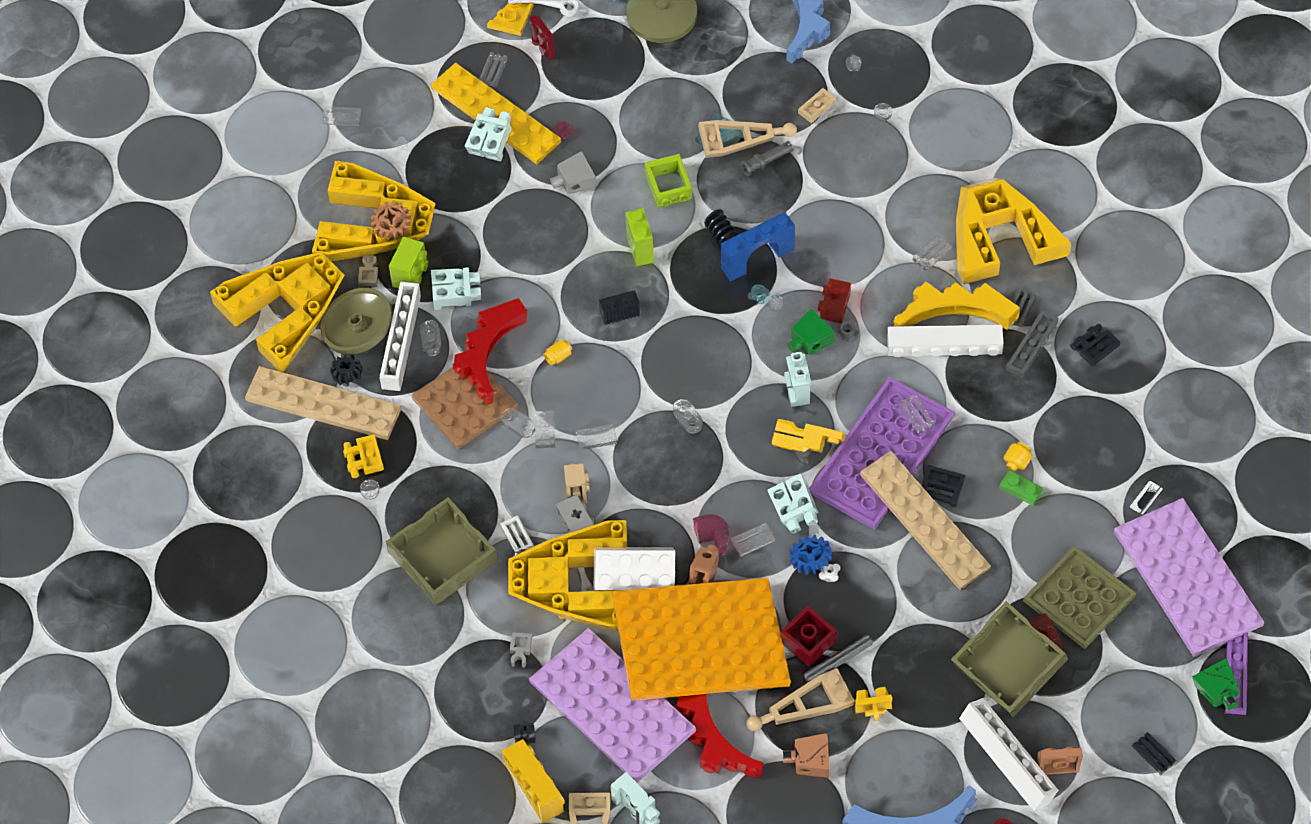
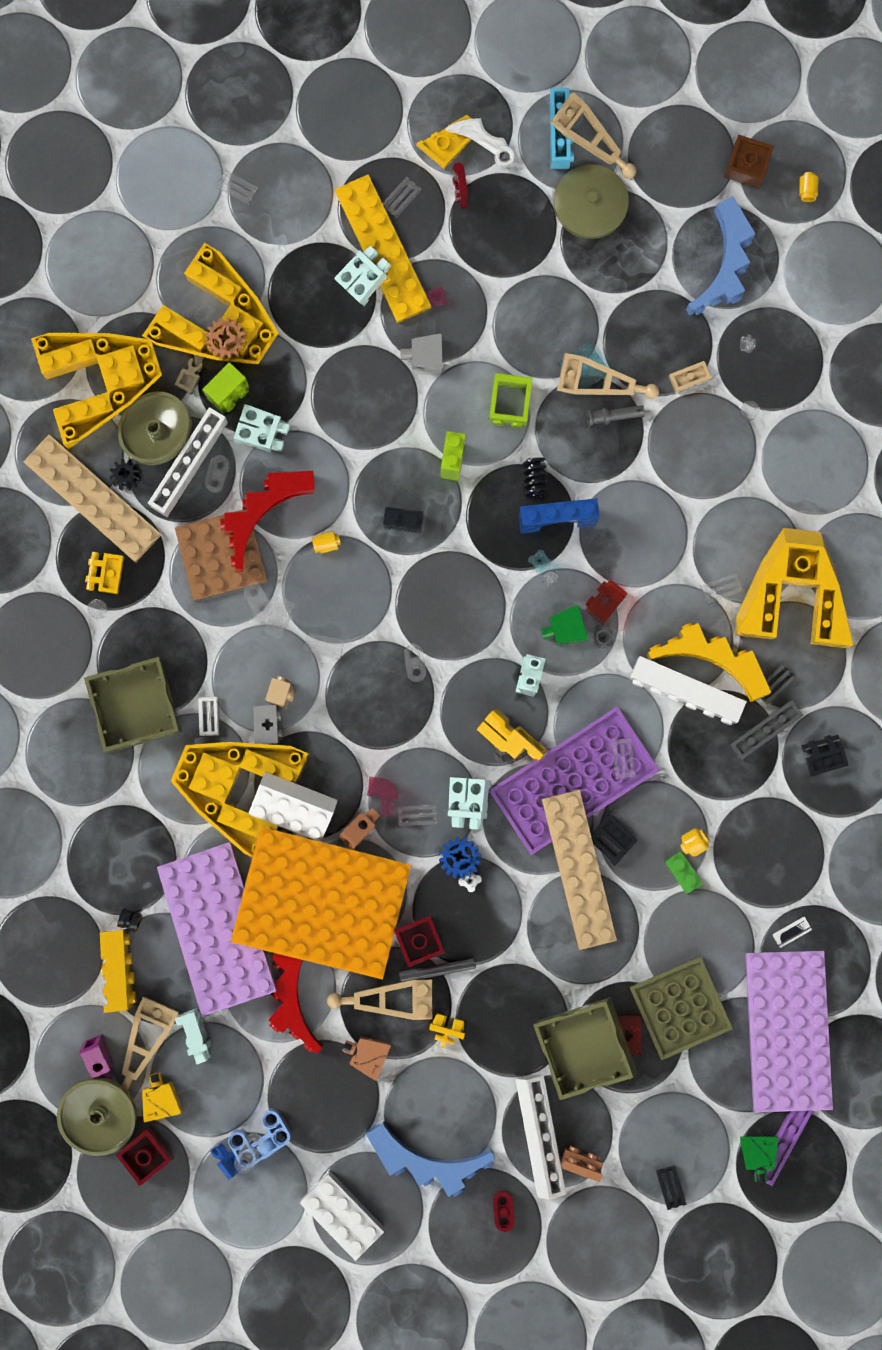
camera: 20 degrees right, 25 degrees up
(520, 647) = (163, 830): light grey plate -> none

